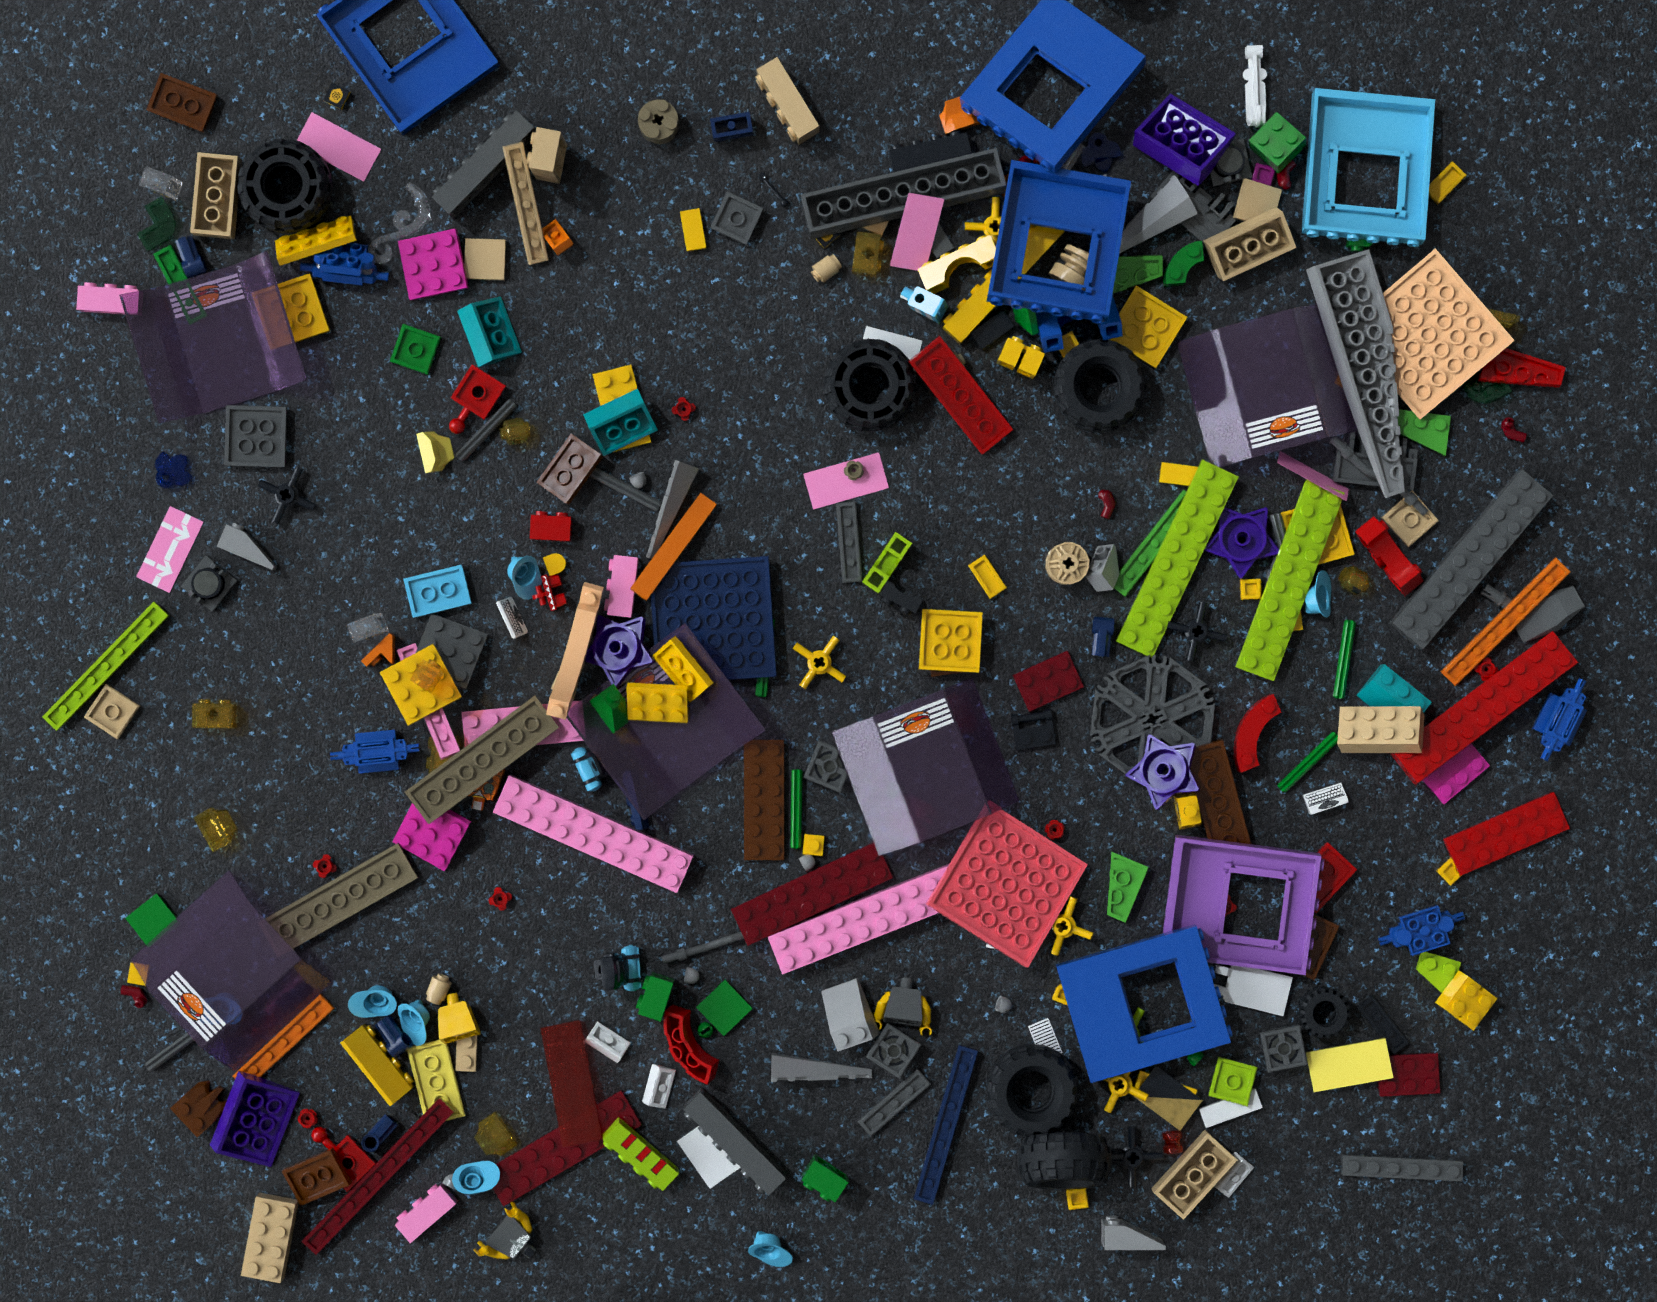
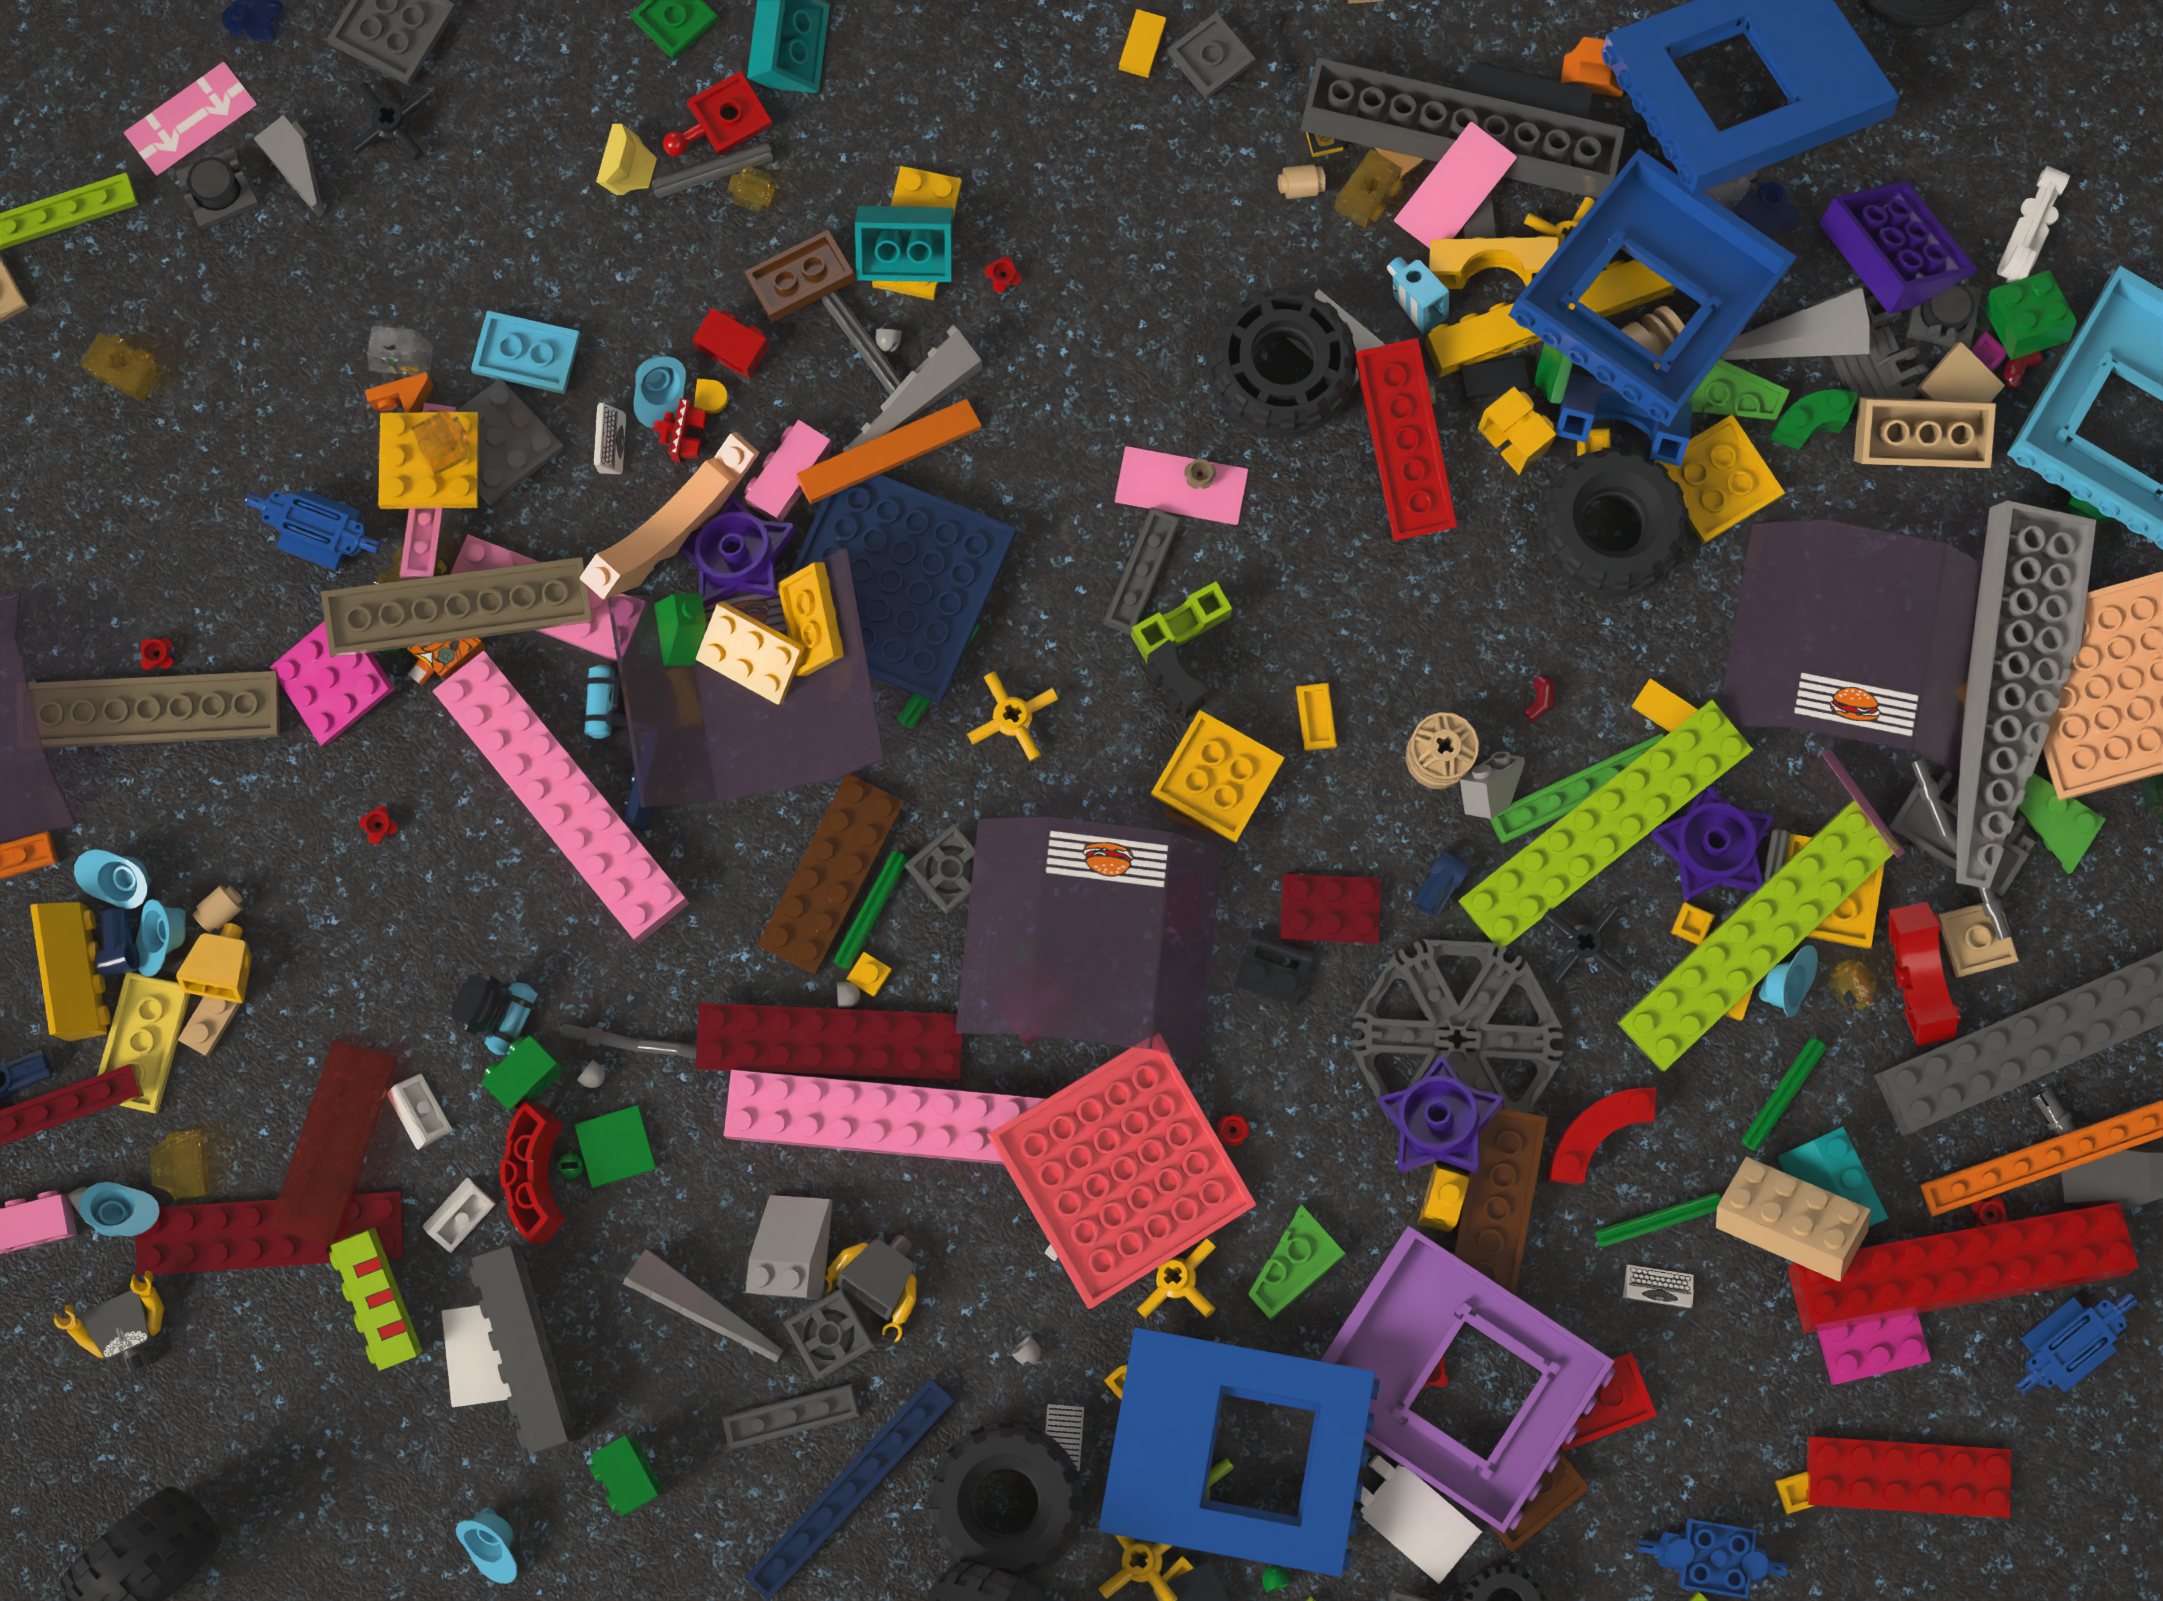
camera: 25 degrees right, 10 degrees down
(216, 827) = (35, 522): clear yellow slope -> none

